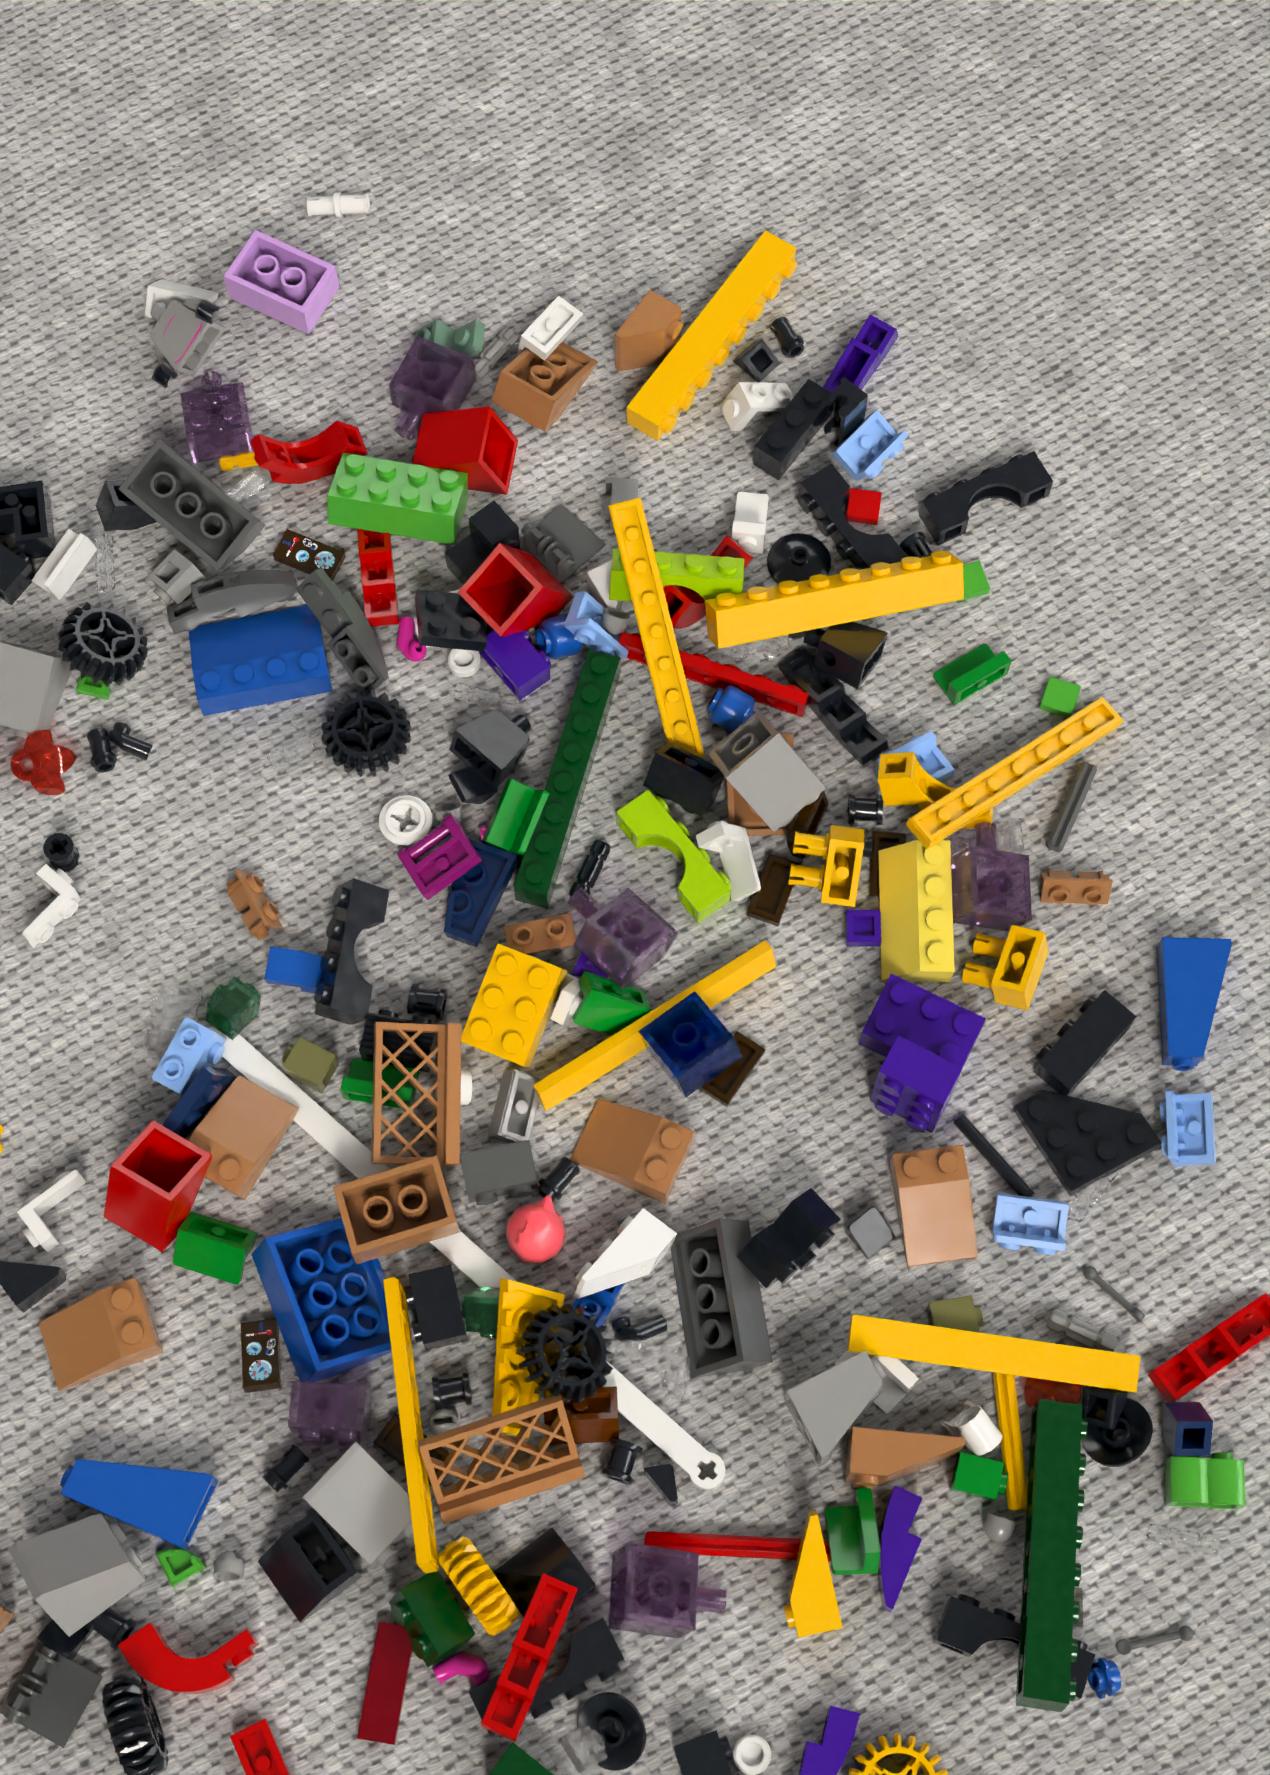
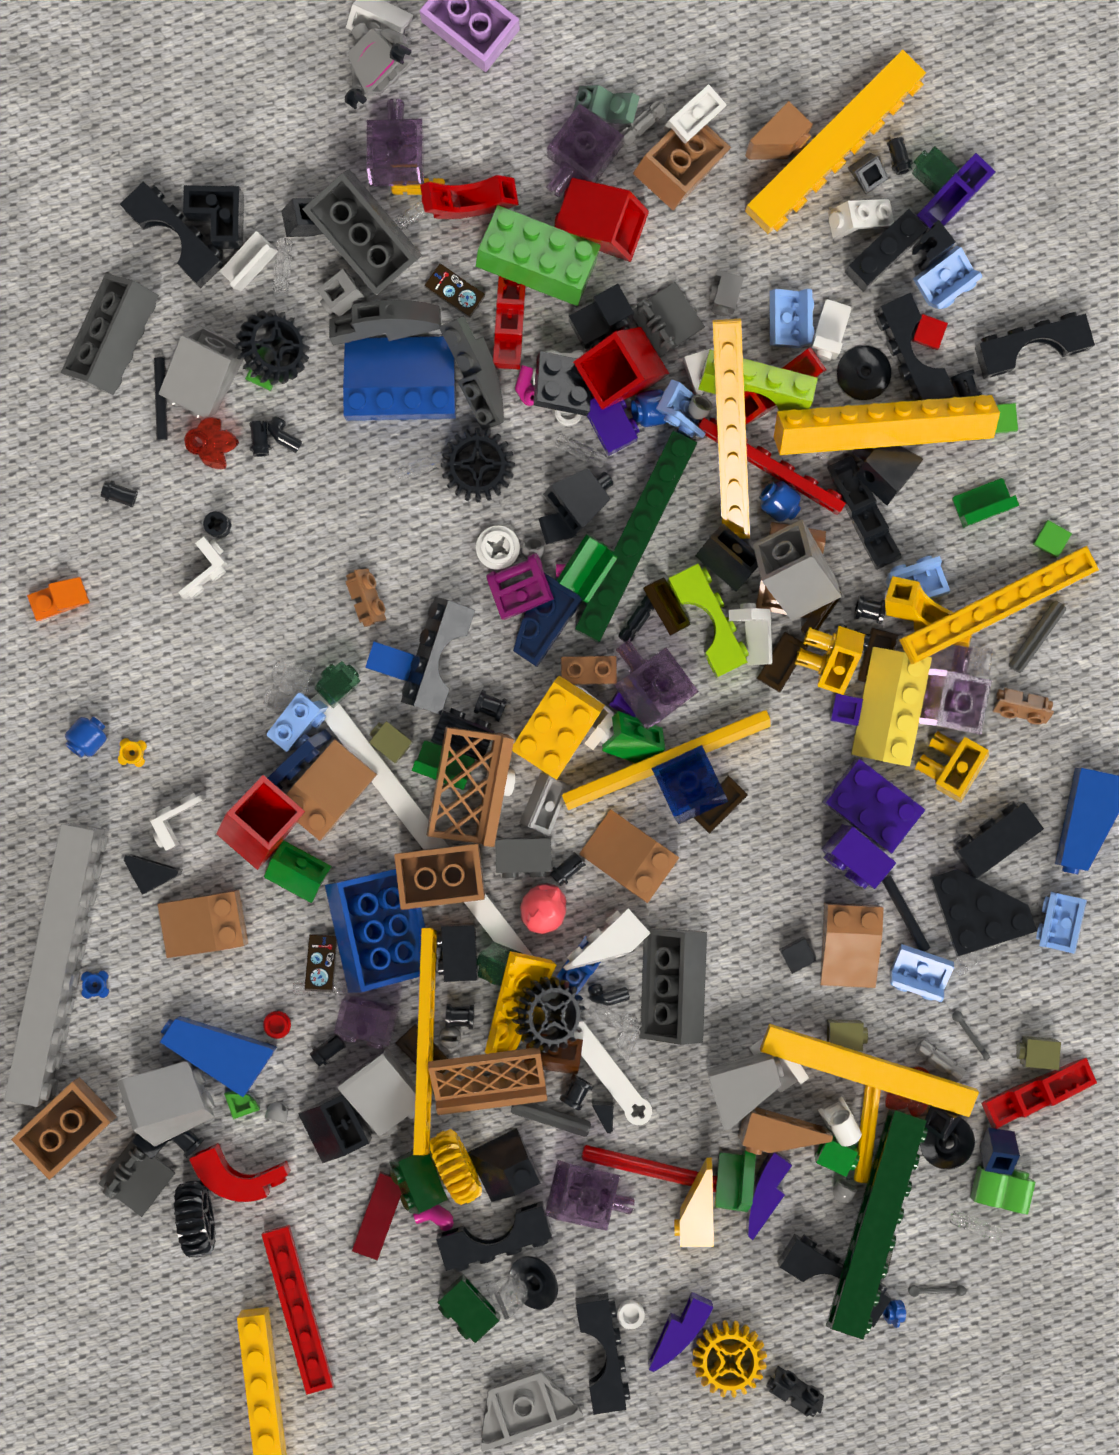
camera: 10 degrees right, 20 degrees up
(214, 1448) = (277, 1024): none -> red plate
(529, 1657) = (484, 1226): red slope -> none
(595, 1503) = (552, 1118): none -> dark grey axle
(621, 848) = (667, 606): none -> dark brown tile
(701, 516) = (791, 318): none -> light blue bracket
(790, 1239) = (735, 957): black brick -> none
(827, 340) = (934, 169): none -> clear green brick
(1204, 1295) = (1039, 1052): none -> olive brick

